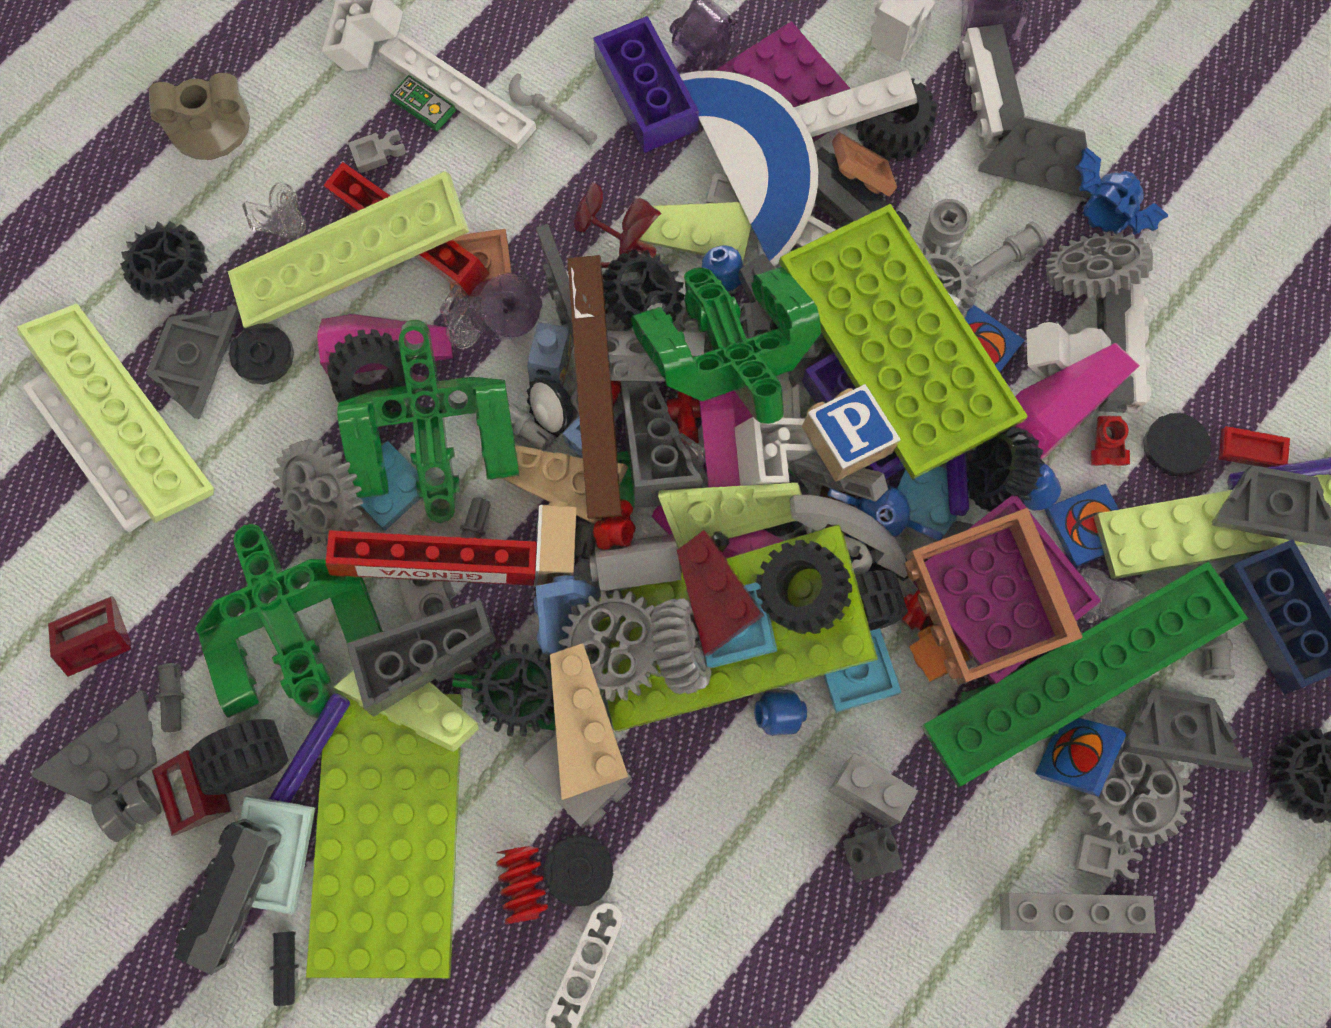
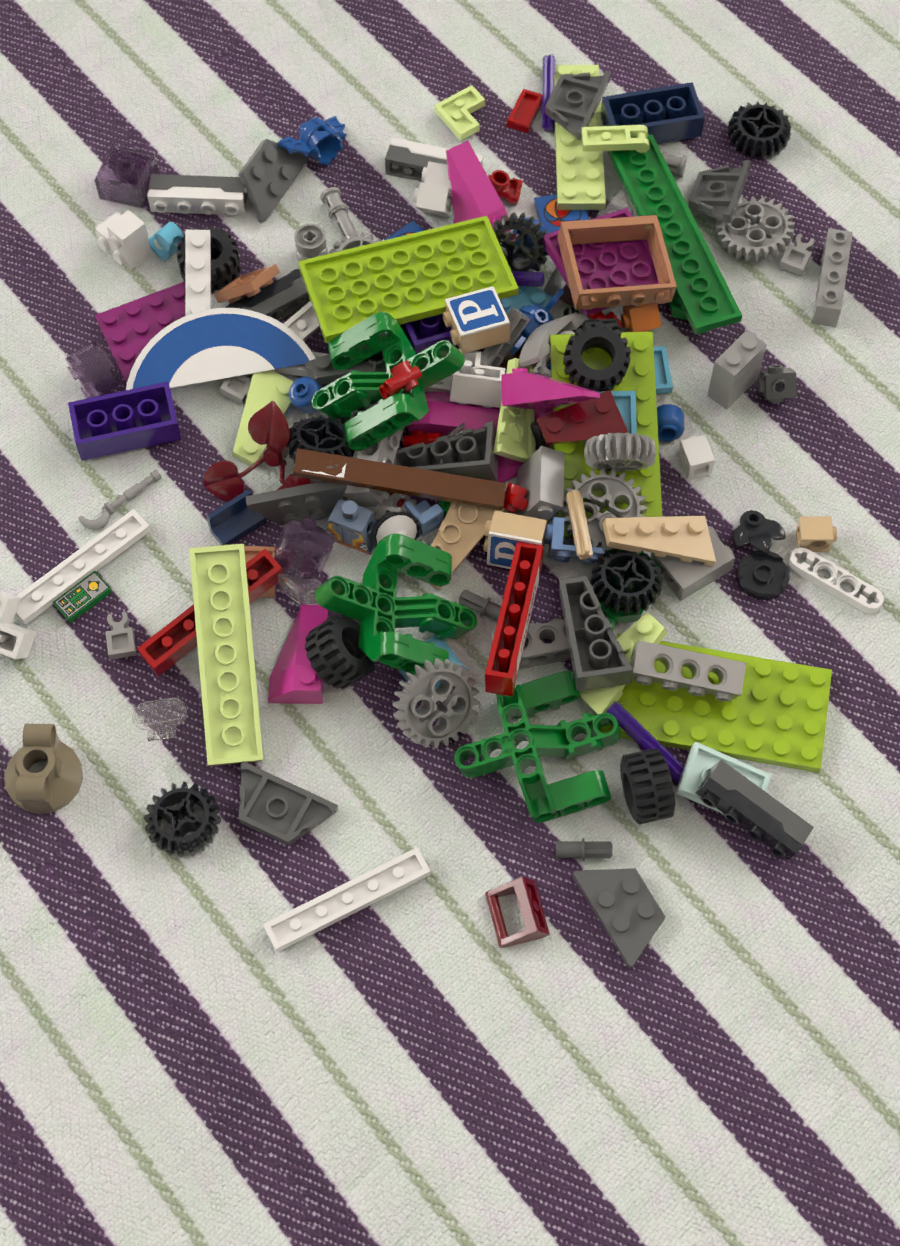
camera: 80 degrees left, 10 degrees down
(116, 412) = (317, 870): yellowish green plate -> none
(121, 812) = (677, 895): dark grey wheel -> none
(205, 807) = (659, 828): dark red tile -> none
(261, 354) = (288, 752): black tile -> none
(284, 968) = (811, 784): black axle -> none
(407, 797) = (728, 671): none -> light grey brick
(521, 884) = (770, 607): red piece -> none
(535, 216) = (234, 520): none -> dark blue panel
(571, 613) = (579, 525): none -> tan axle
(633, 858) = (758, 534): none -> black plate
(645, 934) = (815, 533): none -> tan brick
(719, 352) = (403, 378): none -> red plate
(734, 527) = (540, 392): none -> dark pink wedge
(736, 756) = (696, 456): none -> white brick
(911, 60) = (167, 238): none -> medium azure leg
(1081, 755) = (730, 248): tile -> none
(1099, 265) = (371, 157): light grey gear -> none
(1177, 444) = (513, 152): black tile -> none
(1218, 566) = (615, 138): none -> yellowish green plate
(1226, 358) = (457, 112): none -> yellowish green plate

